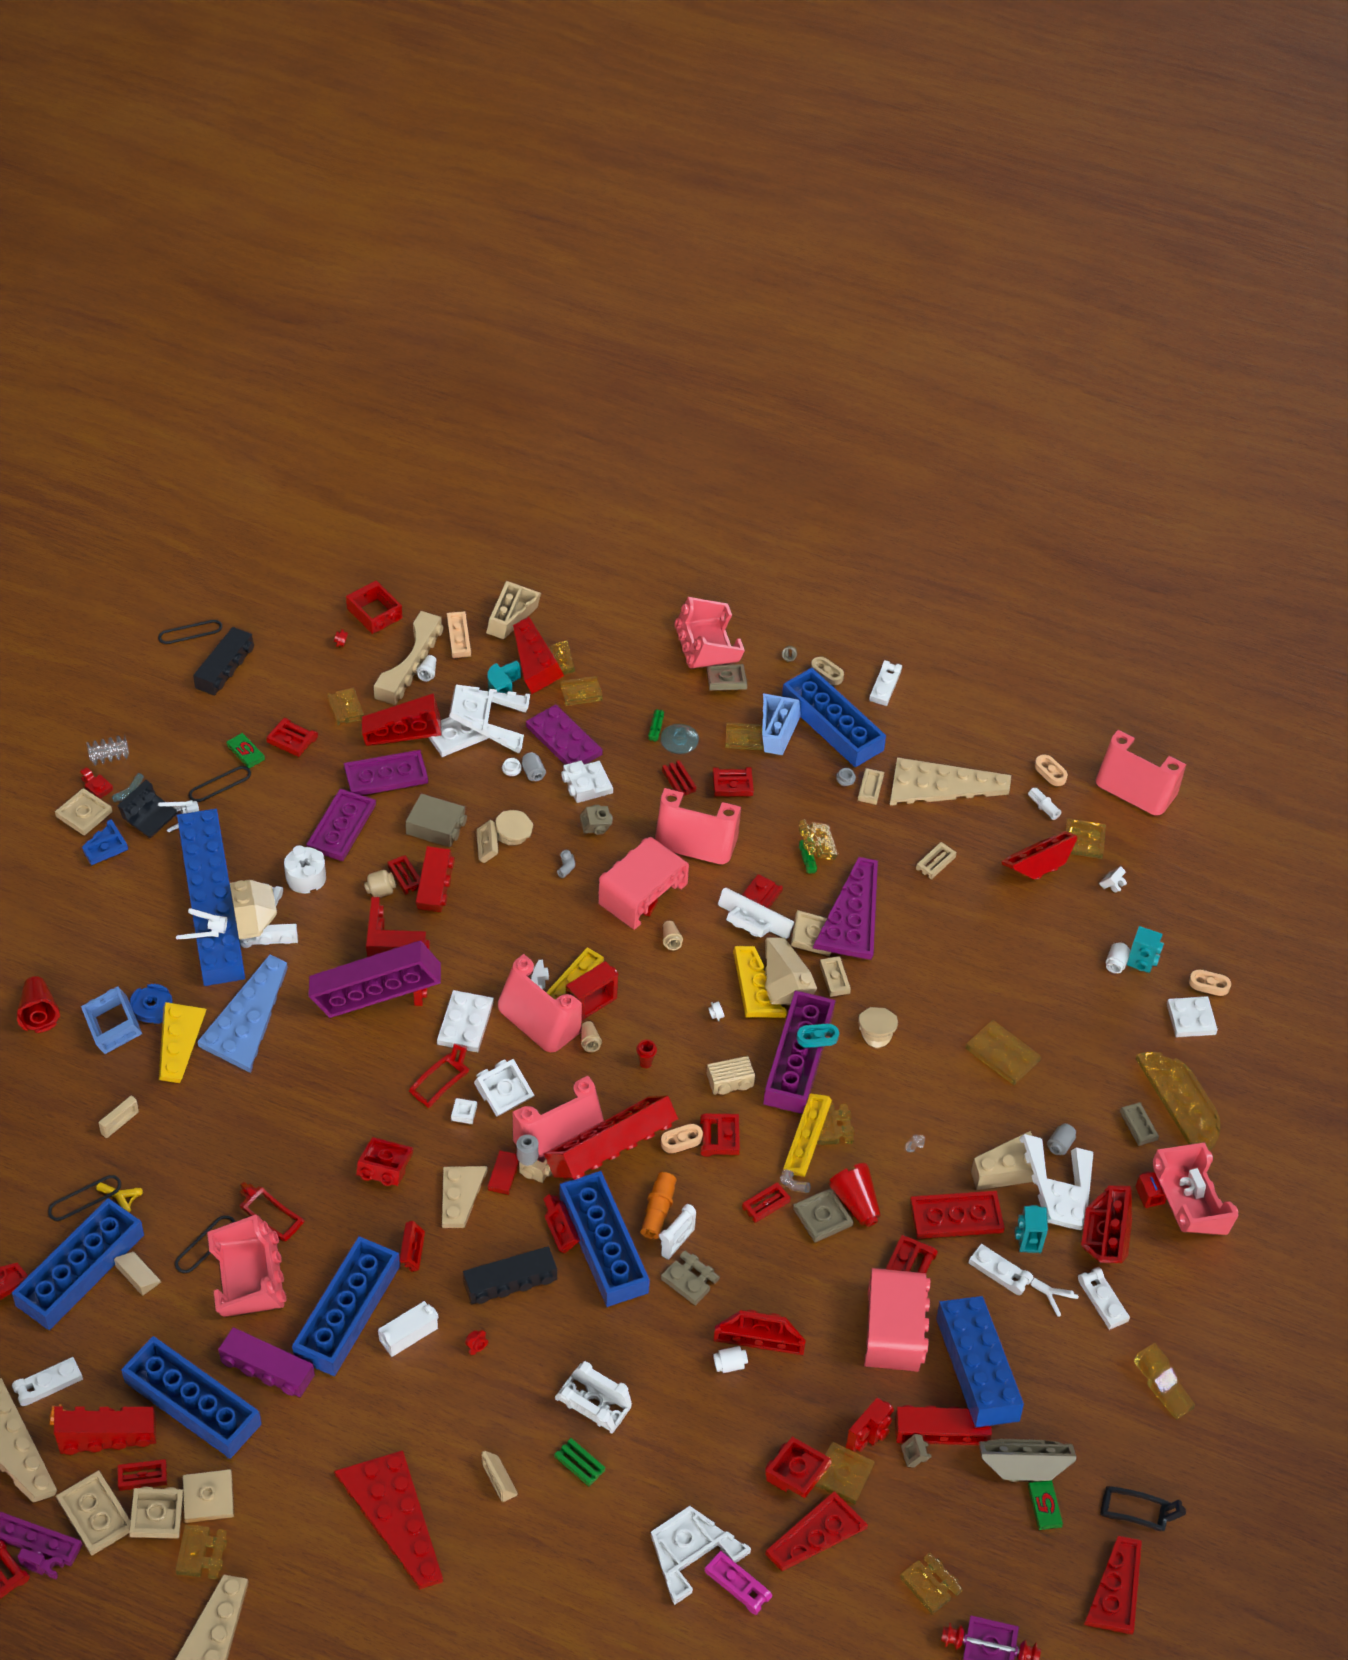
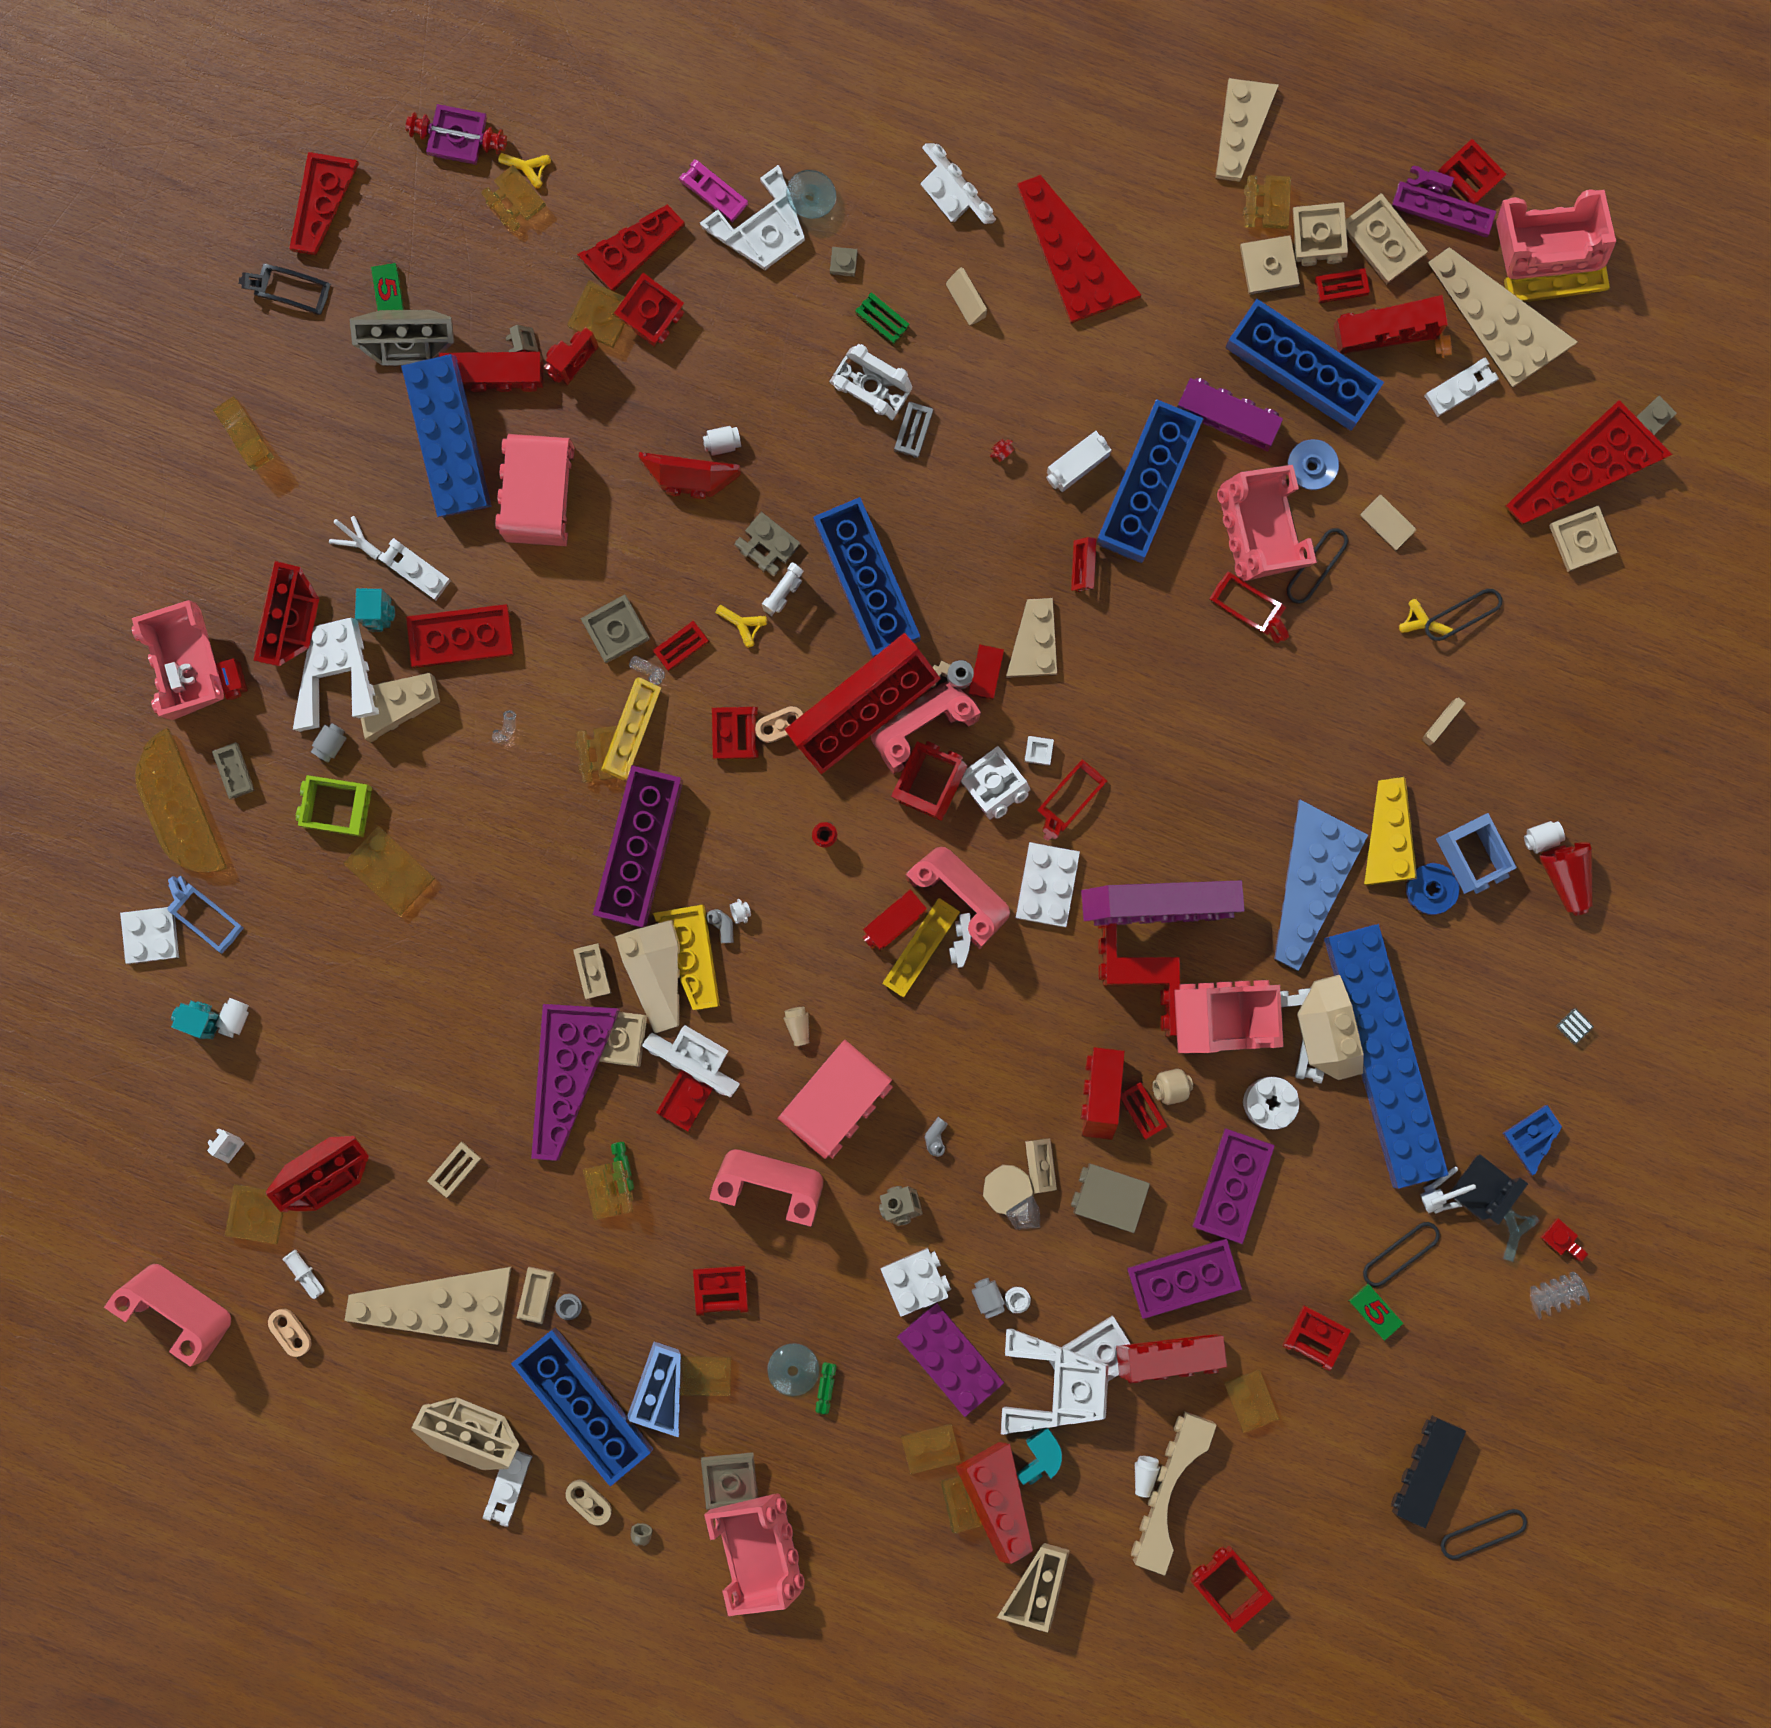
camera: 175 degrees left, 35 degrees up
(52, 1033) = (1544, 836): none -> white brick
(56, 912) = (1574, 1026): none -> tile
(78, 1264) = (1454, 520): blue brick -> none
(83, 811) = (1570, 1190): tan plate -> none
(196, 1309) = (1322, 456): none -> medium blue dish
(216, 923) = (1369, 986): white plant -> none
(336, 914) = (1228, 1016): none -> coral windscreen
(340, 638) = (1272, 1526): red plate -> none
(384, 1161) = (1126, 674): red plate -> none
(458, 634) = (1108, 1543): light nougat plate -> none
(501, 804) = (1025, 1214): none -> clear slope
(505, 1575) = (951, 190): none -> white bracket
(510, 1275) = (970, 532): black brick -> none
(550, 1381) = (907, 450): none -> light grey tile
(560, 1224) = (918, 603): red hinge -> none
(563, 1070) = (910, 771): none -> red window
(590, 1038) = (894, 864): tan cone -> none
(614, 1515) = (843, 261): none -> dark tan plate
(642, 1561) = (814, 184): none -> clear light blue dish
(658, 1205) = (805, 630): orange piece -> none
(673, 767) = (802, 1314): red tile -> none
(713, 1217) = (742, 623): none -> yellow piece
(728, 1004) = (723, 923): none -> light grey arm
(730, 1075) = (722, 814): tan brick -> none
(817, 1035) = (615, 849): teal plate -> none
(857, 1193) = (575, 652): red cone -> none
(877, 1026) = (541, 898): tan hat -> none
(907, 1252) = (524, 574): red plate -> none
(914, 707) = (467, 1433): none -> tan wedge
(920, 1615) = (527, 166): none -> yellow piece
(1054, 1079) = (359, 811): none -> lime window
(1103, 1298) = (299, 537): white plate -> none
(1164, 1041) = (179, 899): none -> medium blue sword
(1210, 982) = (120, 986): light nougat plate -> none

